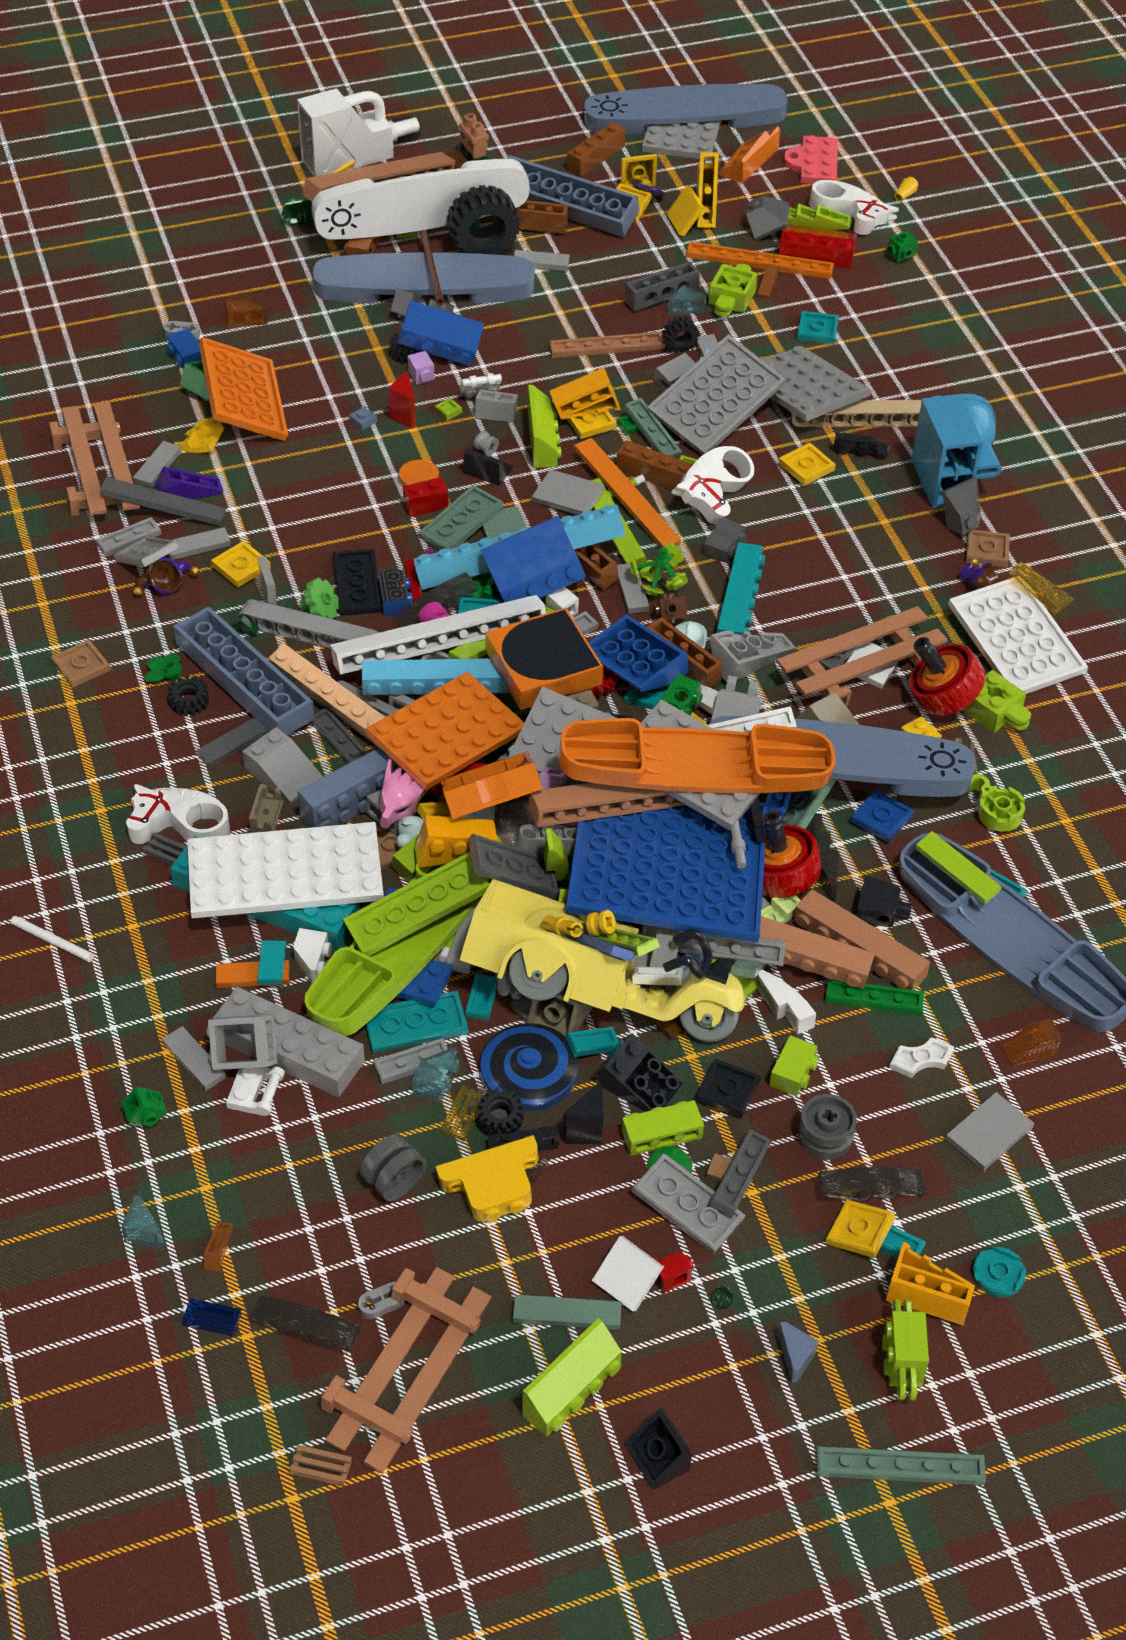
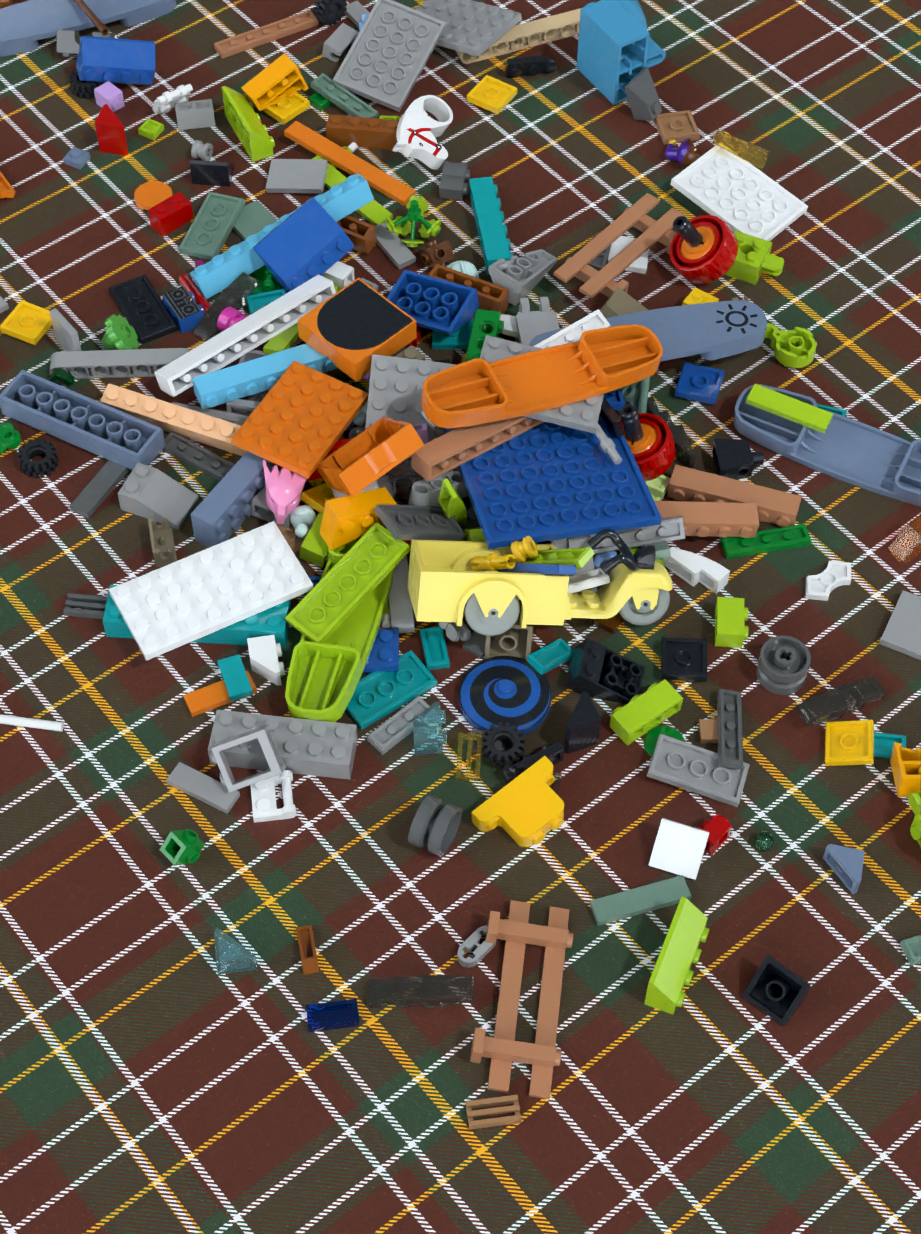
camera: 20 degrees left, 5 degrees up
(175, 808) = (79, 564): white animal -> none

